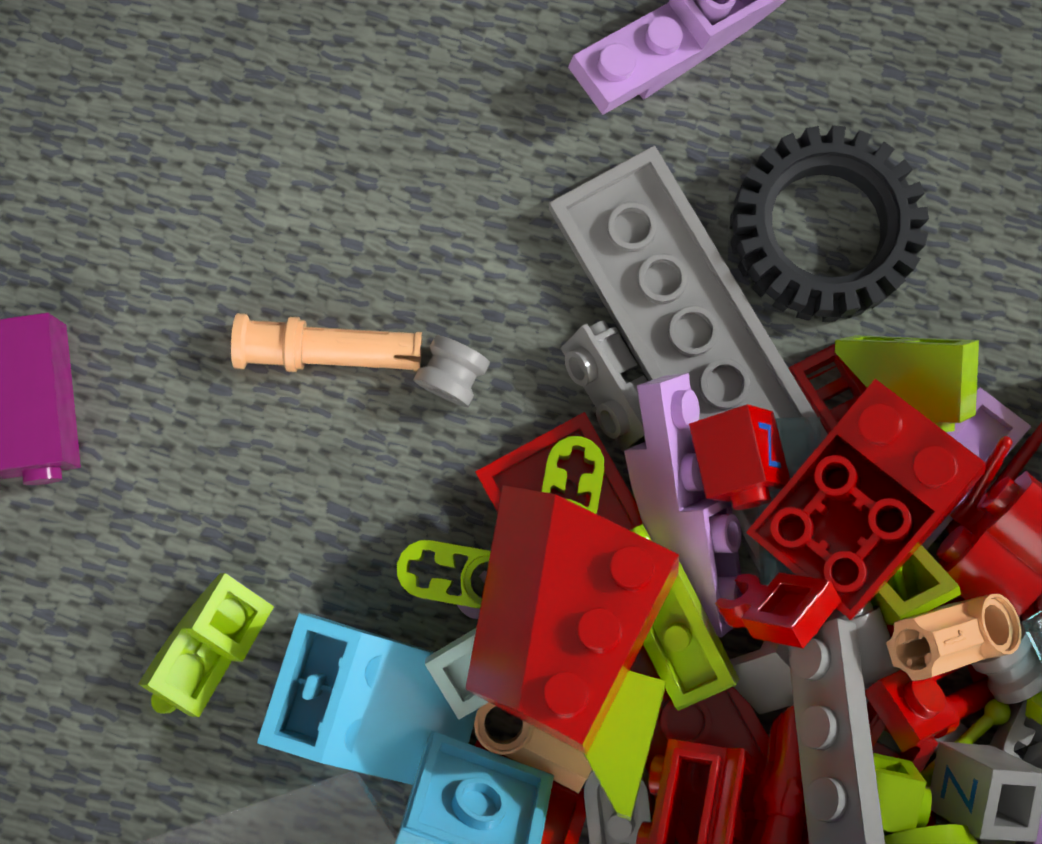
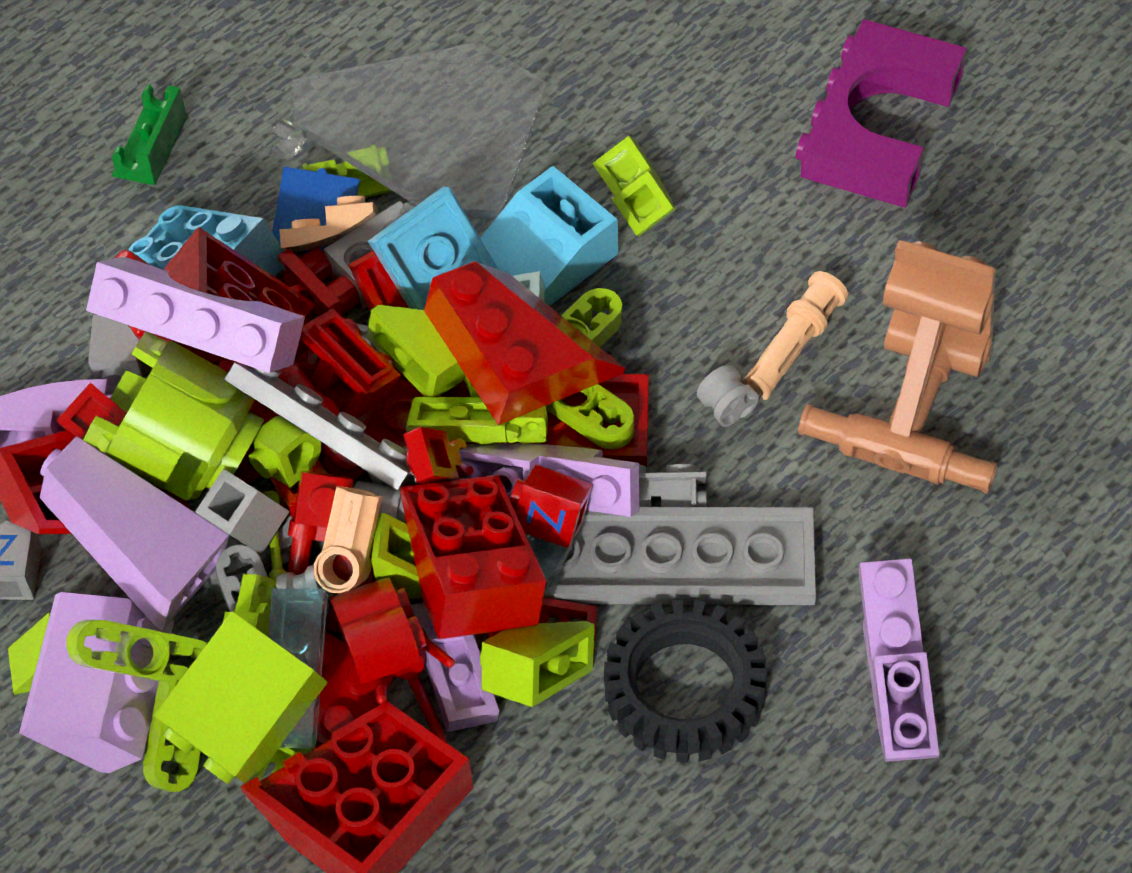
camera: 125 degrees right, 25 degrees down
(281, 154) = (942, 326): none -> nougat plate

